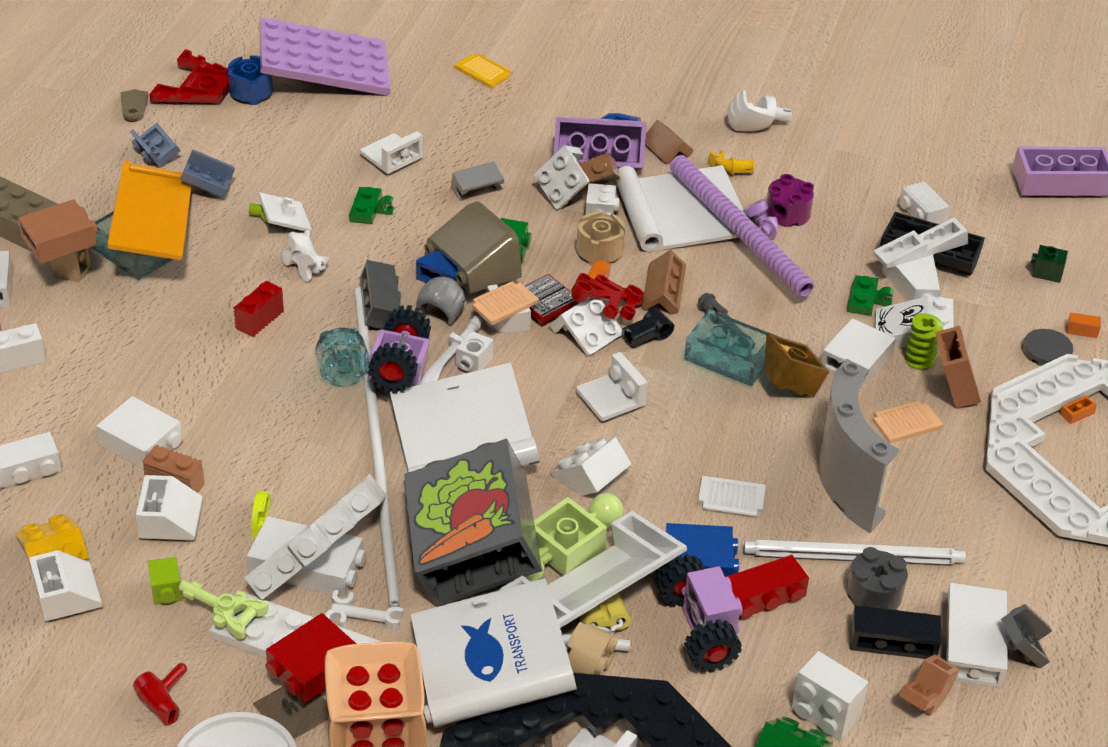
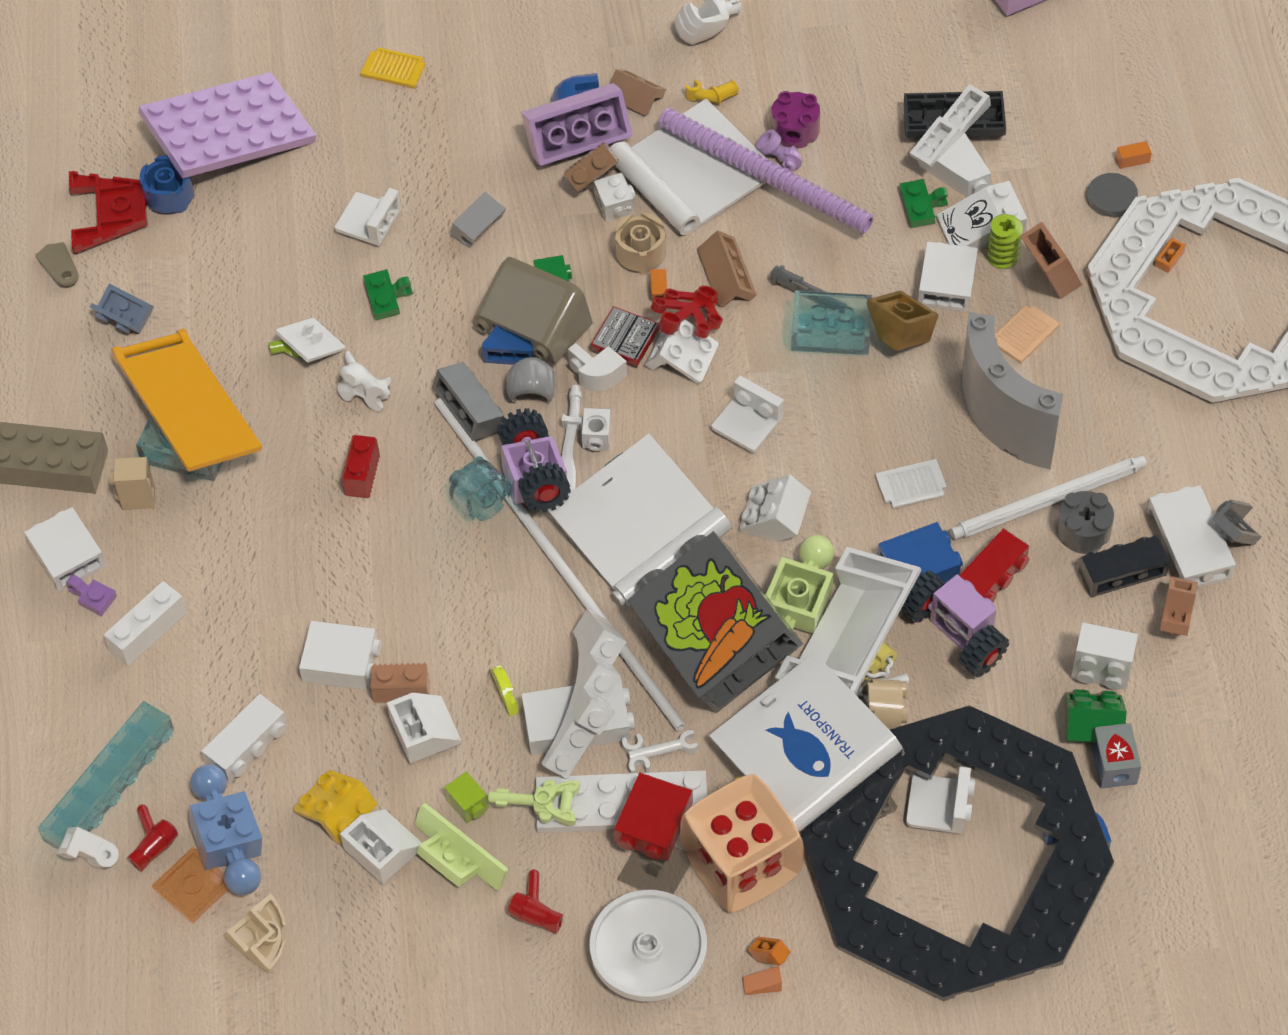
camera: 20 degrees left, 15 degrees up
(58, 231) = (126, 472): nougat brick -> none
(121, 620) = (456, 853): none -> yellowish green bracket
(207, 173) = (205, 327): sand blue bracket -> none
(504, 302) = (596, 362): light nougat window -> none
(562, 176) = (565, 184): white bracket -> none
(652, 325) = (743, 326): black piece -> none
(924, 203) = (923, 69): white brick -> none
(1049, 263) = (1071, 94): dark green brick -> none

